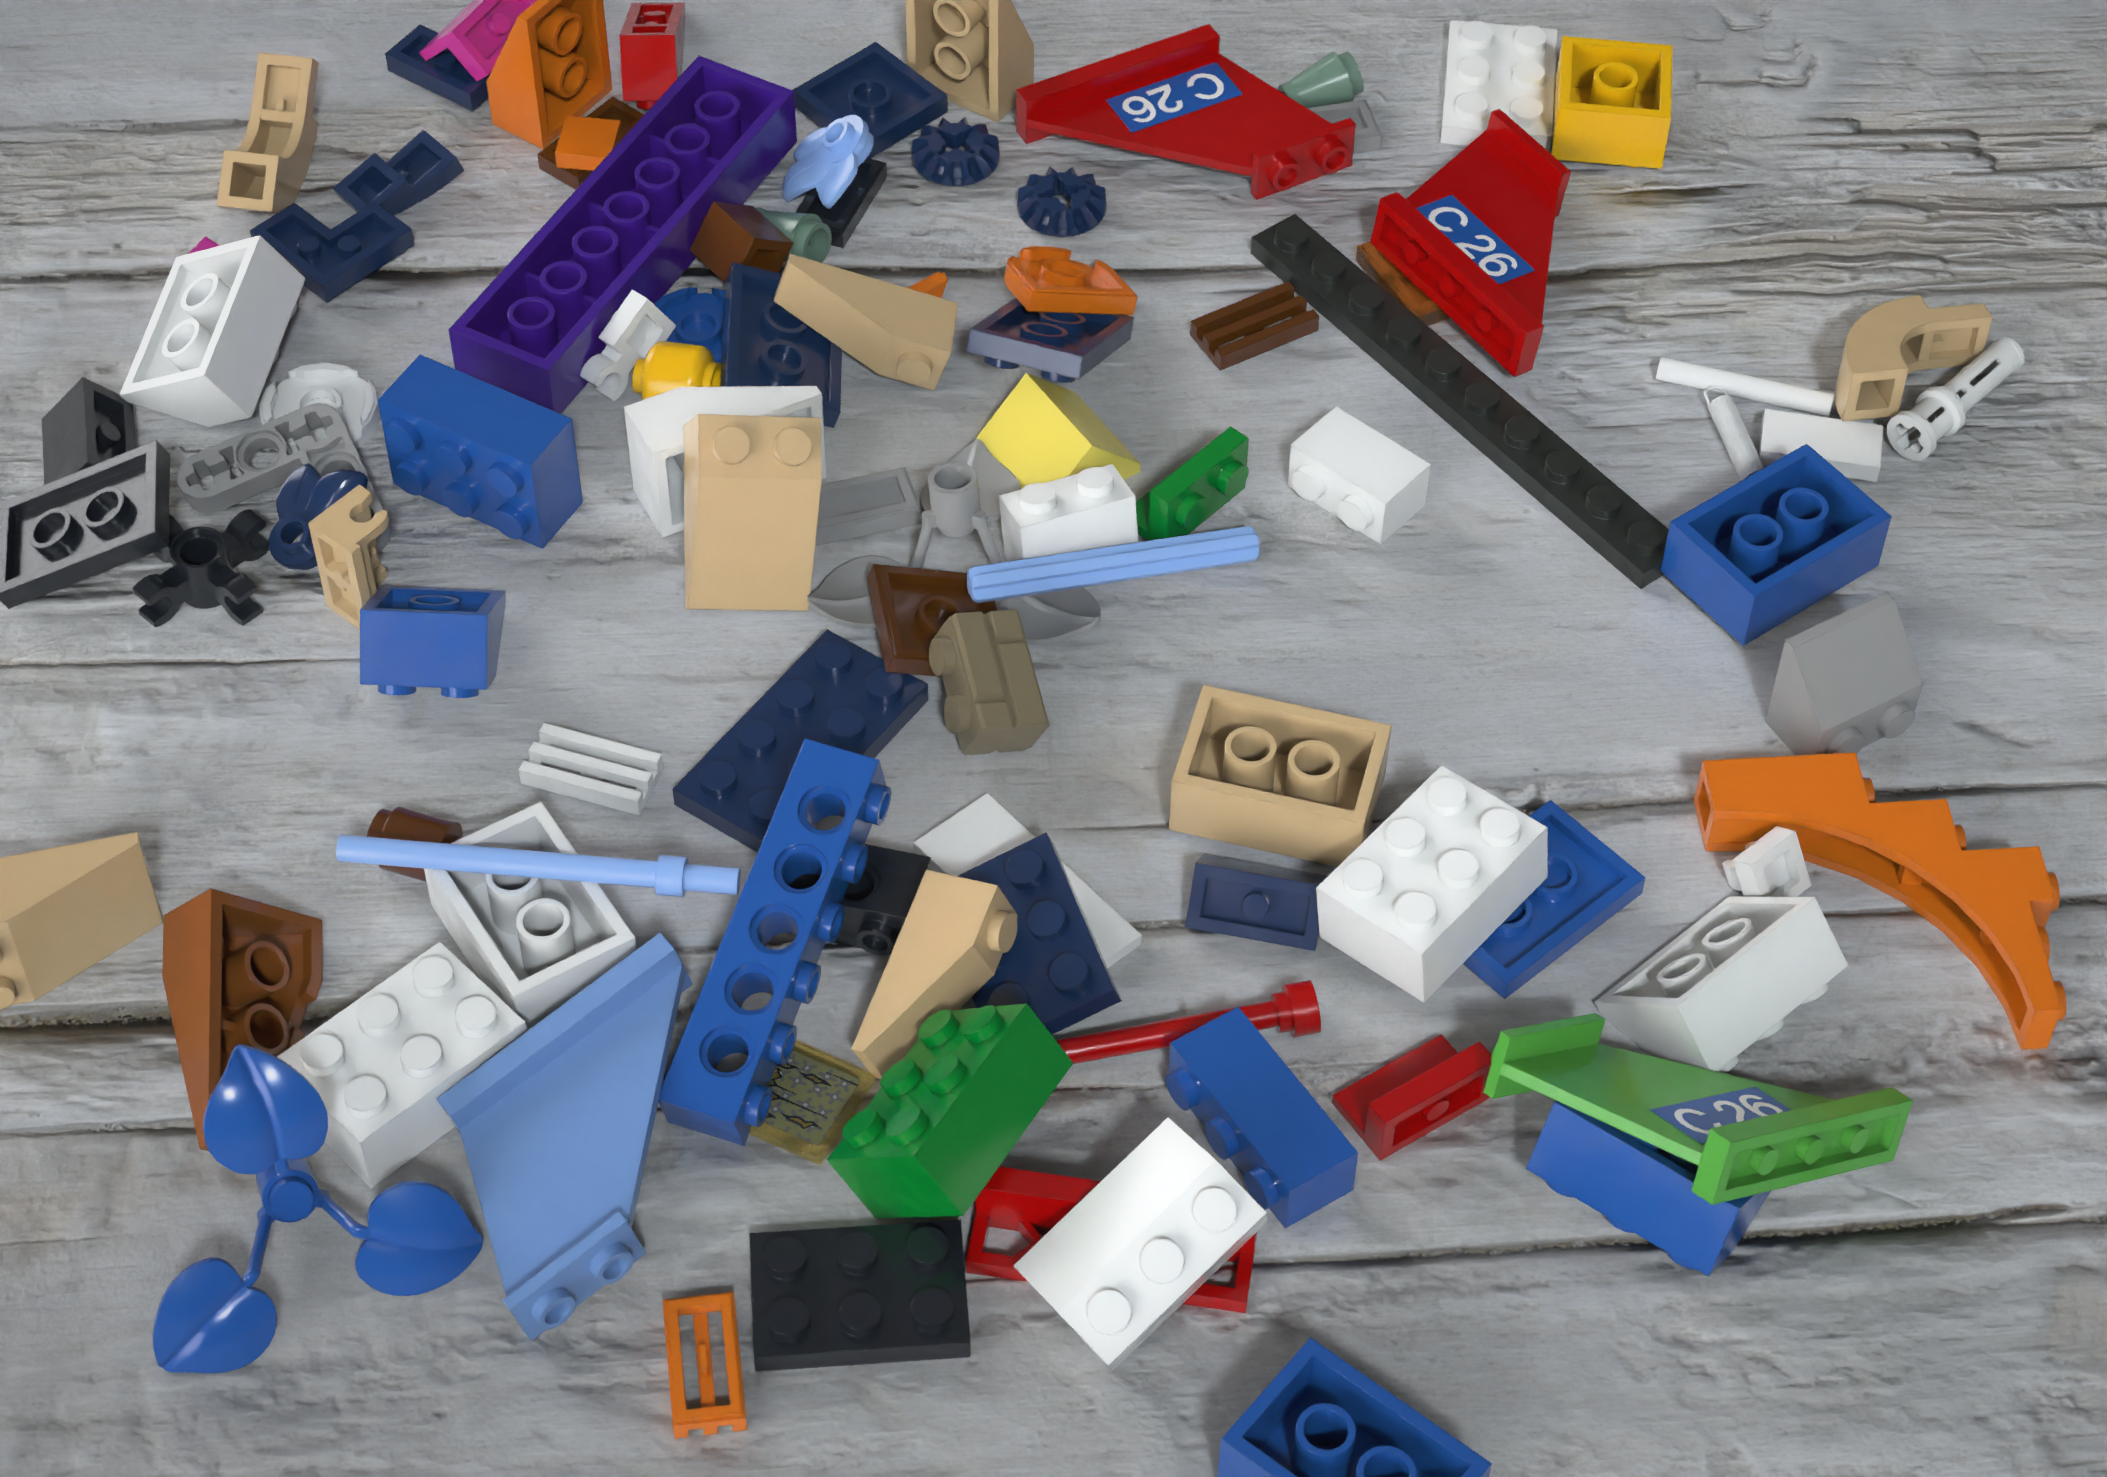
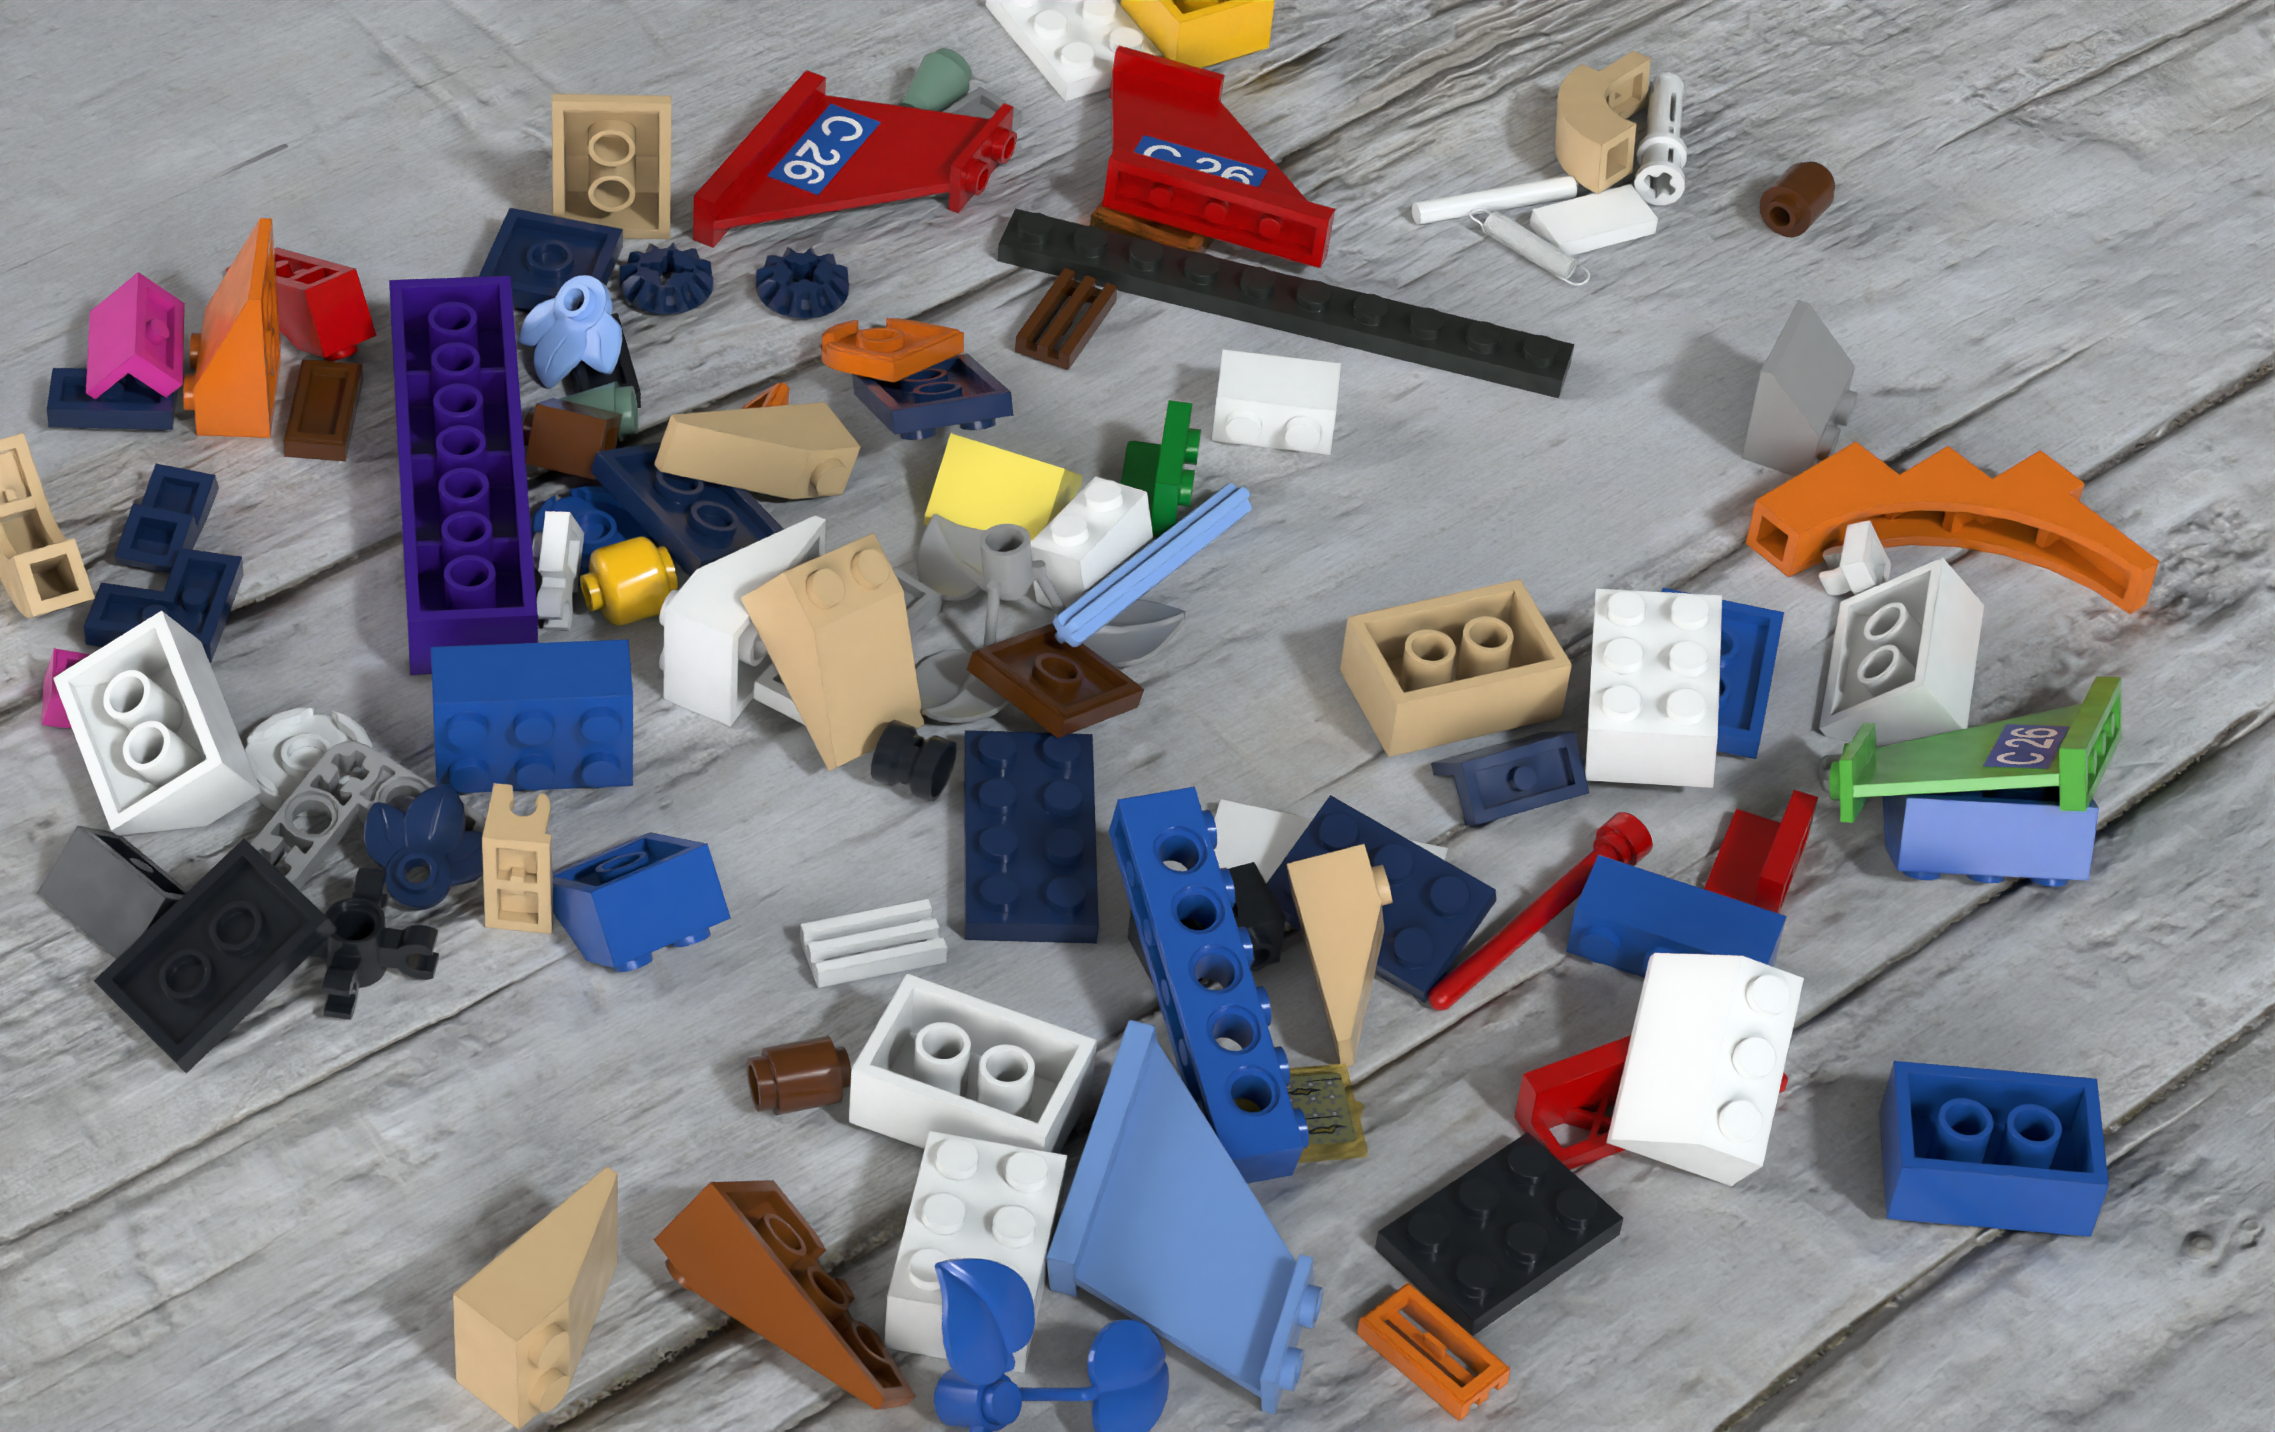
camera: 40 degrees left, 5 degrees down
(586, 142) = (335, 408): orange tile -> none
(668, 875) = (1079, 975): light blue bar -> none
(754, 624) = (912, 760): none -> black wheel
(950, 1111) = (1466, 1046): green brick -> none
(988, 682) = (1159, 702): dark tan brick -> none
(1775, 544) = (1648, 310): blue brick -> none
(2038, 507) = (1797, 198): none -> reddish brown brick

